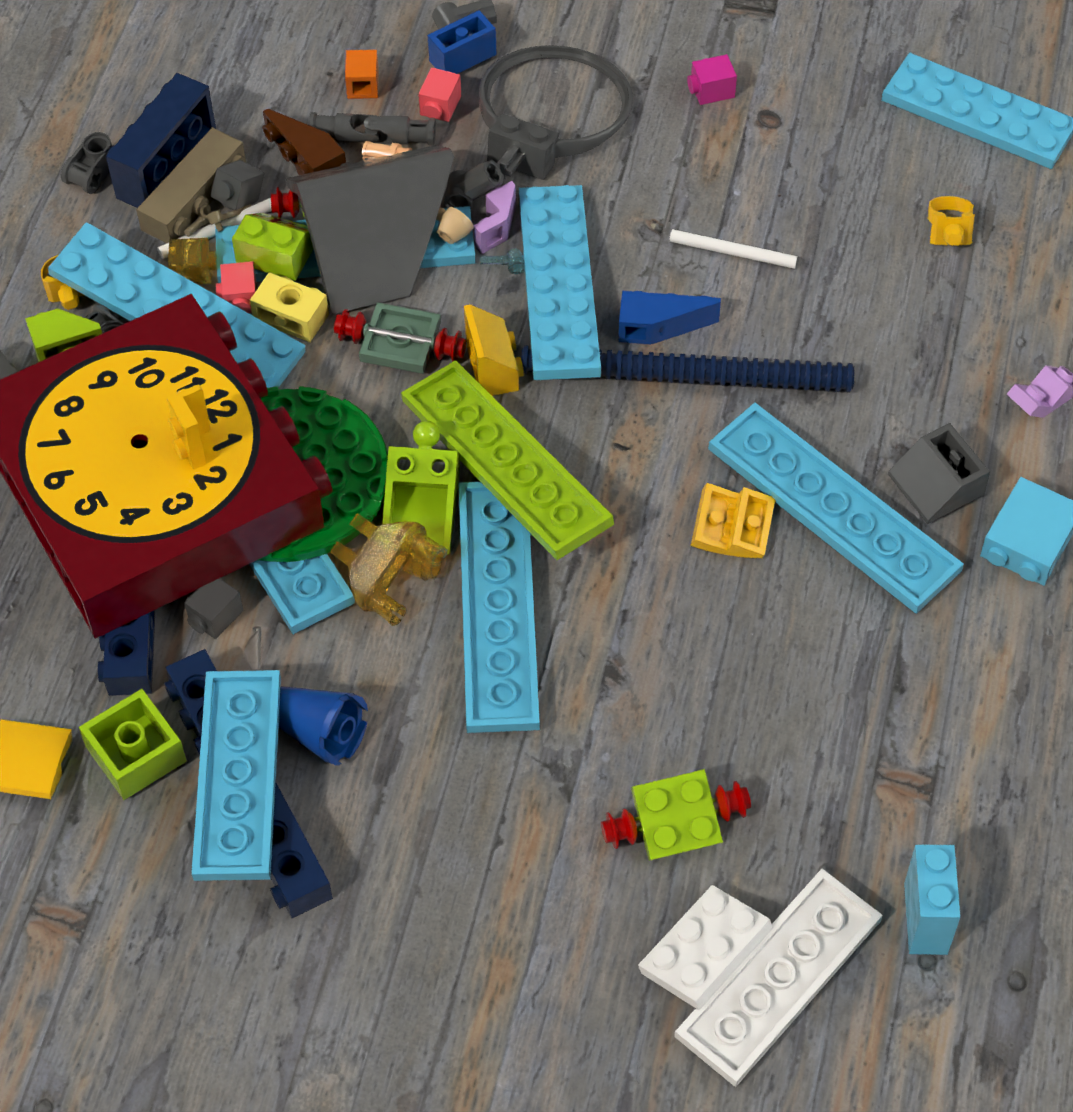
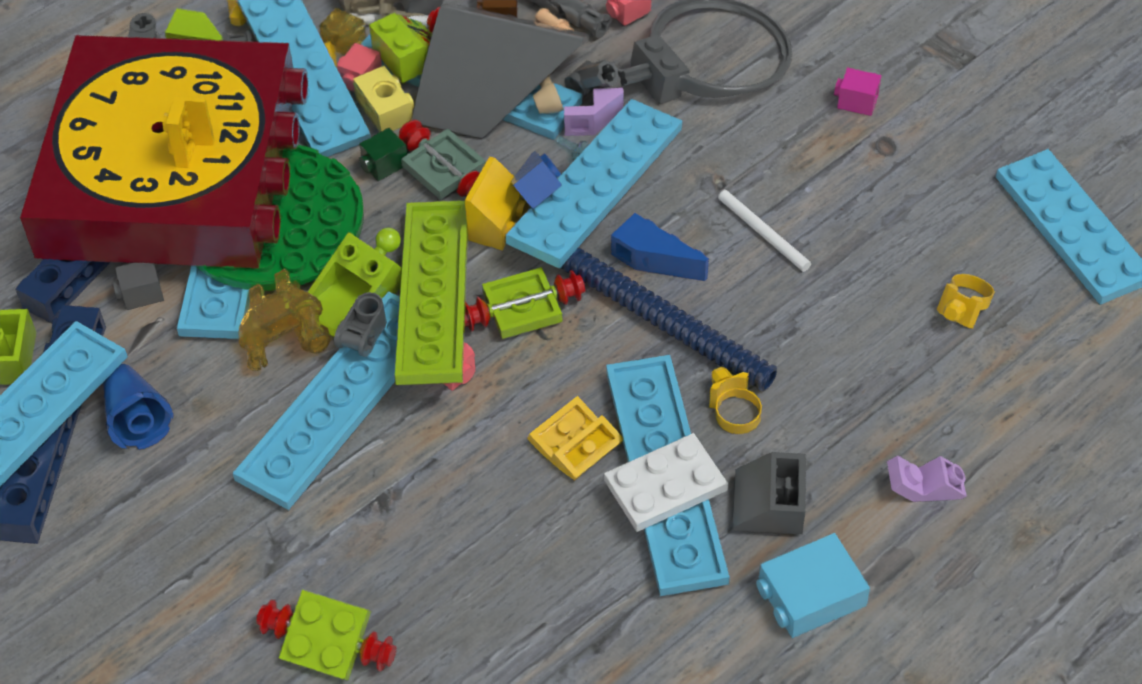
camera: 35 degrees right, 5 degrees down
(336, 358) = (382, 154): none -> dark green brick
(472, 529) = (360, 327): none -> dark grey piece
(517, 303) = (537, 179): none -> blue slope
(588, 425) = (523, 302): none -> lime plate
(817, 401) = (729, 386): none -> yellow piece
(848, 514) = (665, 482): none -> white plate

